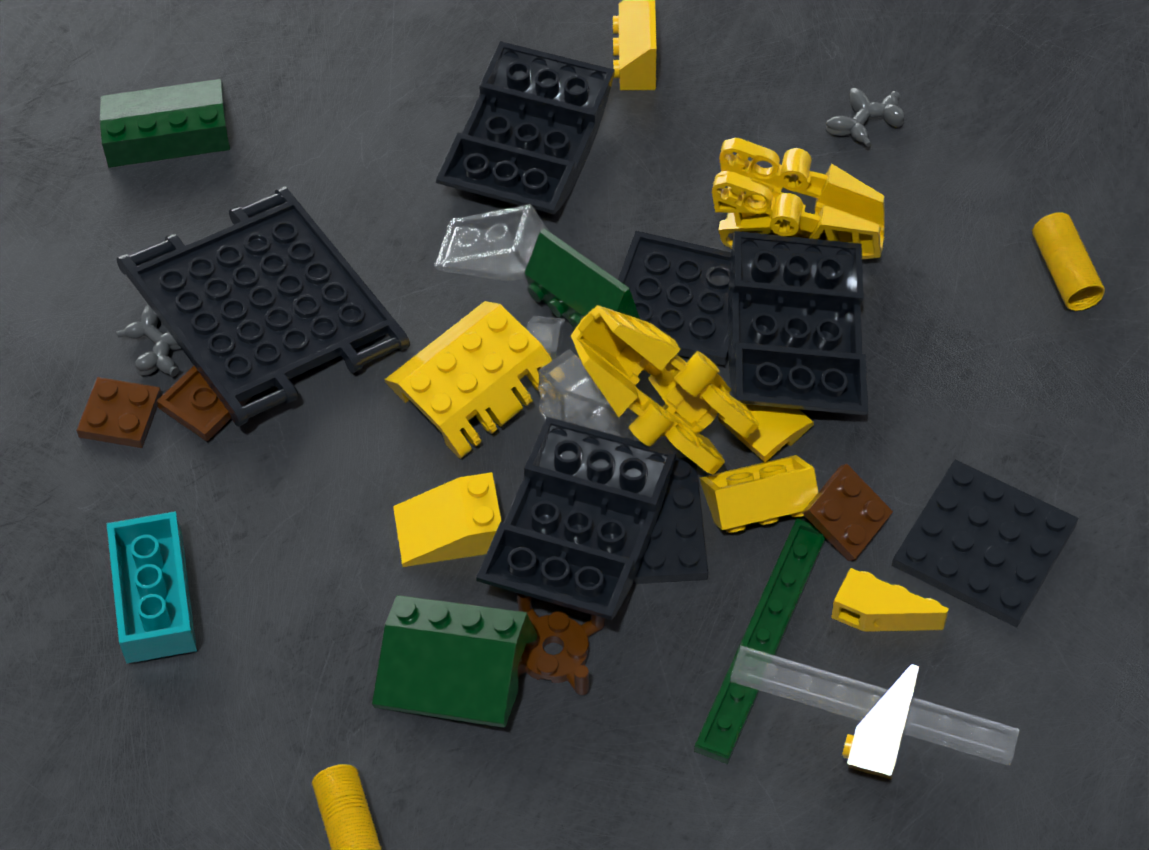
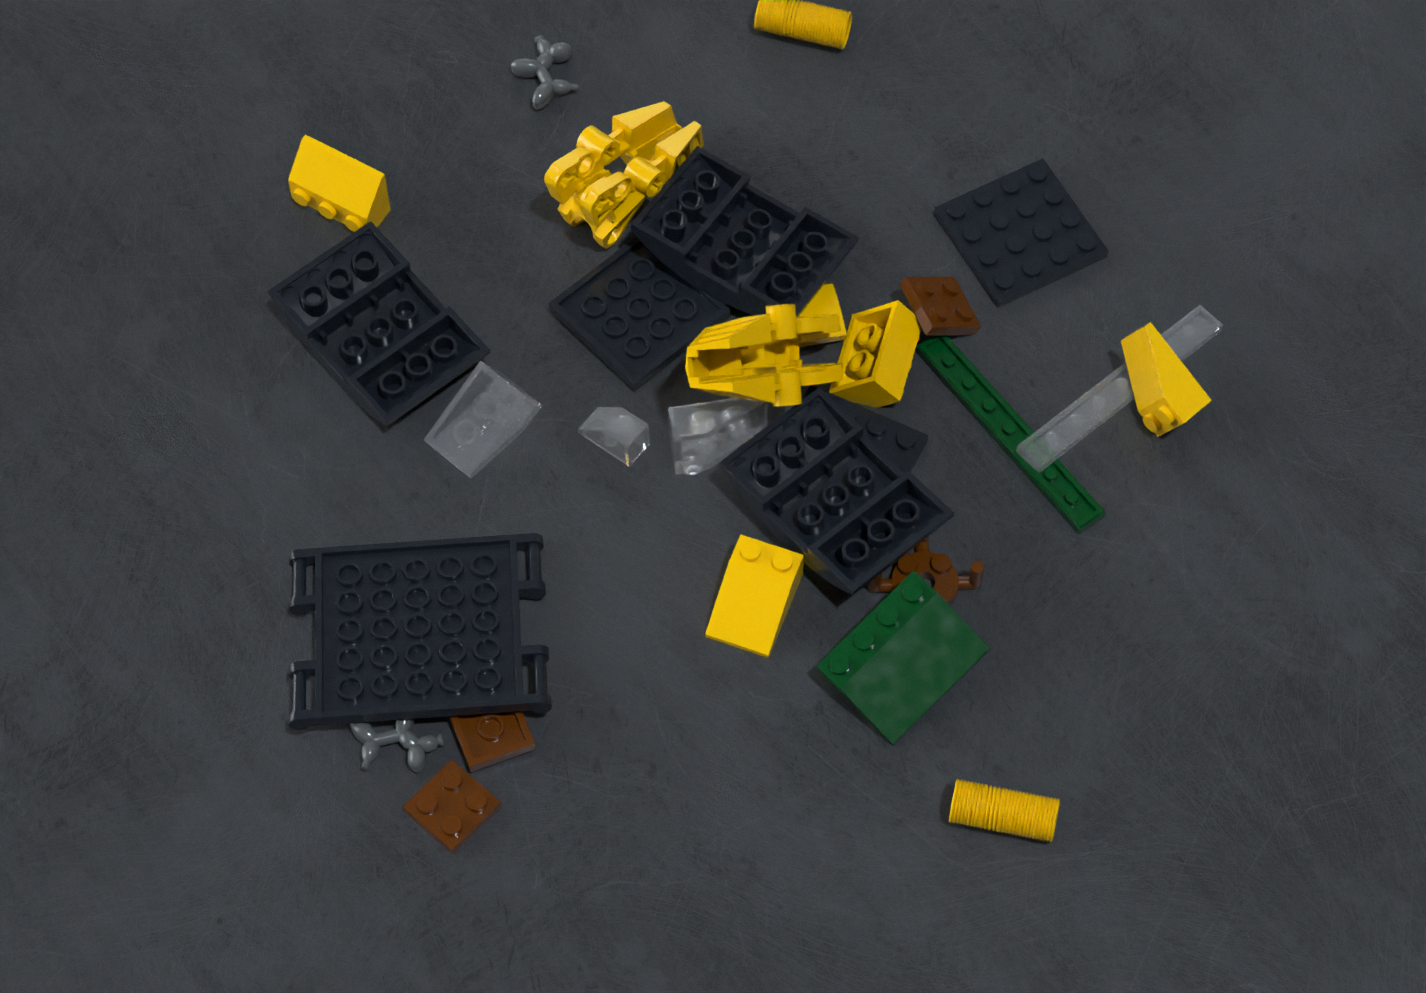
camera: 60 degrees left, 5 degrees up
(151, 587) = (675, 856): teal brick -> none
(163, 123) = (129, 614): dark green piece -> none
(472, 372) = (616, 500): yellow slope -> none
(572, 282) = (600, 373): dark green slope -> none
(879, 606) = (1032, 337): yellow slope -> none

